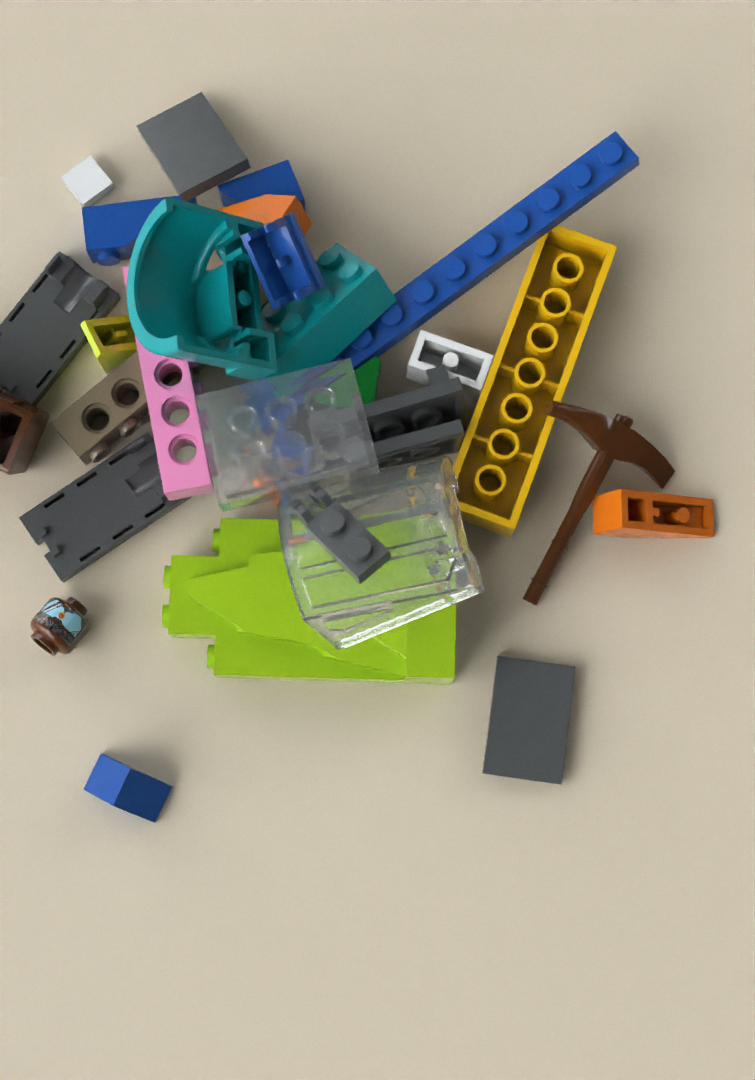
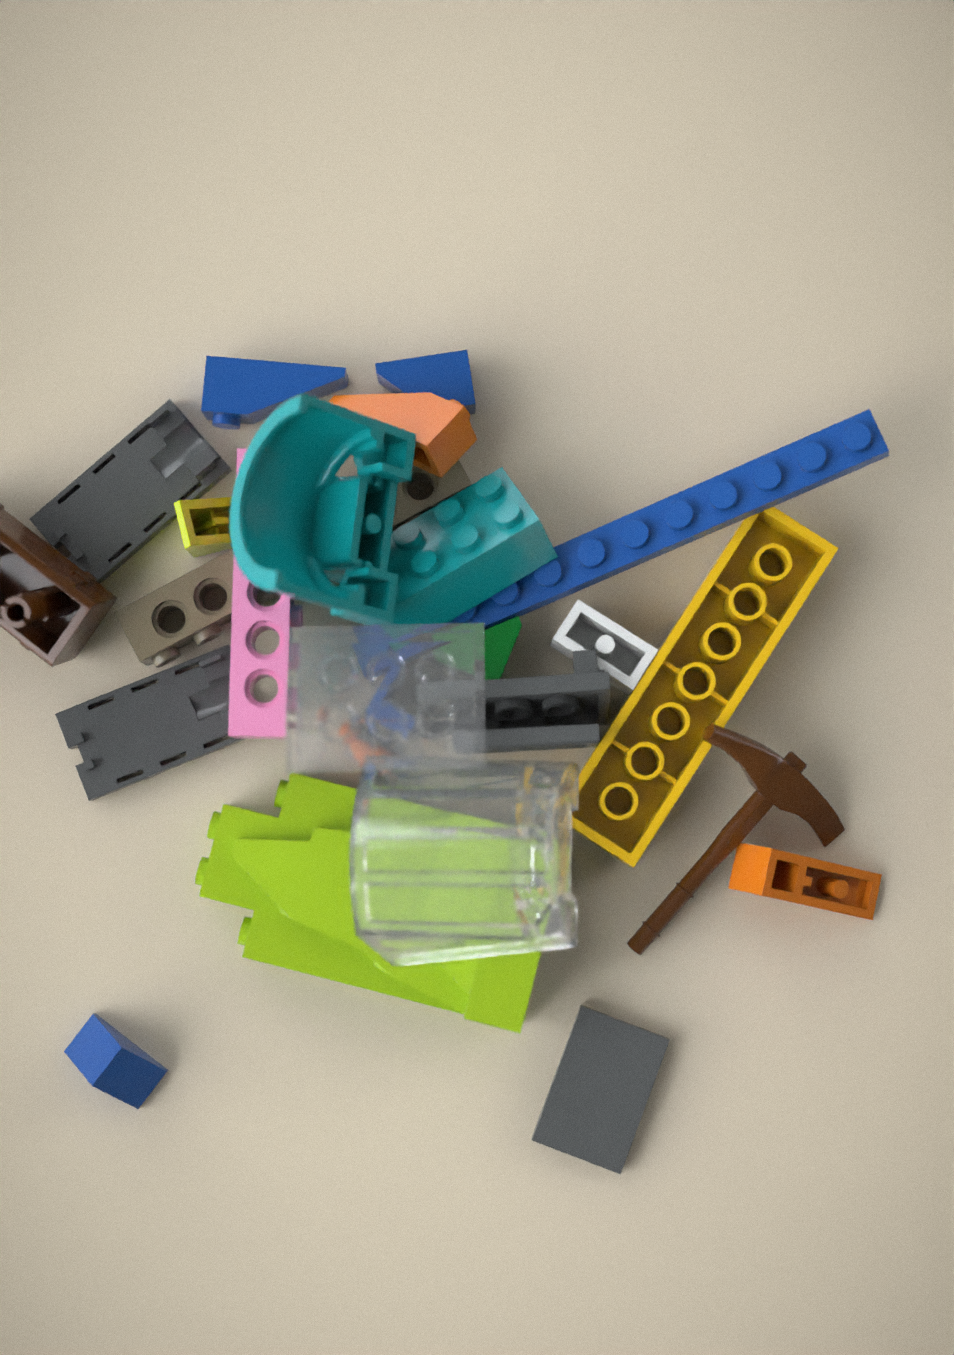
camera: 15 degrees right, 5 degrees up
(60, 625) = (76, 855): head -> none
(87, 182) = (222, 319): white tile -> none
(193, 147) = (356, 307): dark grey tile -> none
(283, 261) = (429, 489): blue hinge -> none
(341, 535) = (423, 845): dark grey hinge -> none

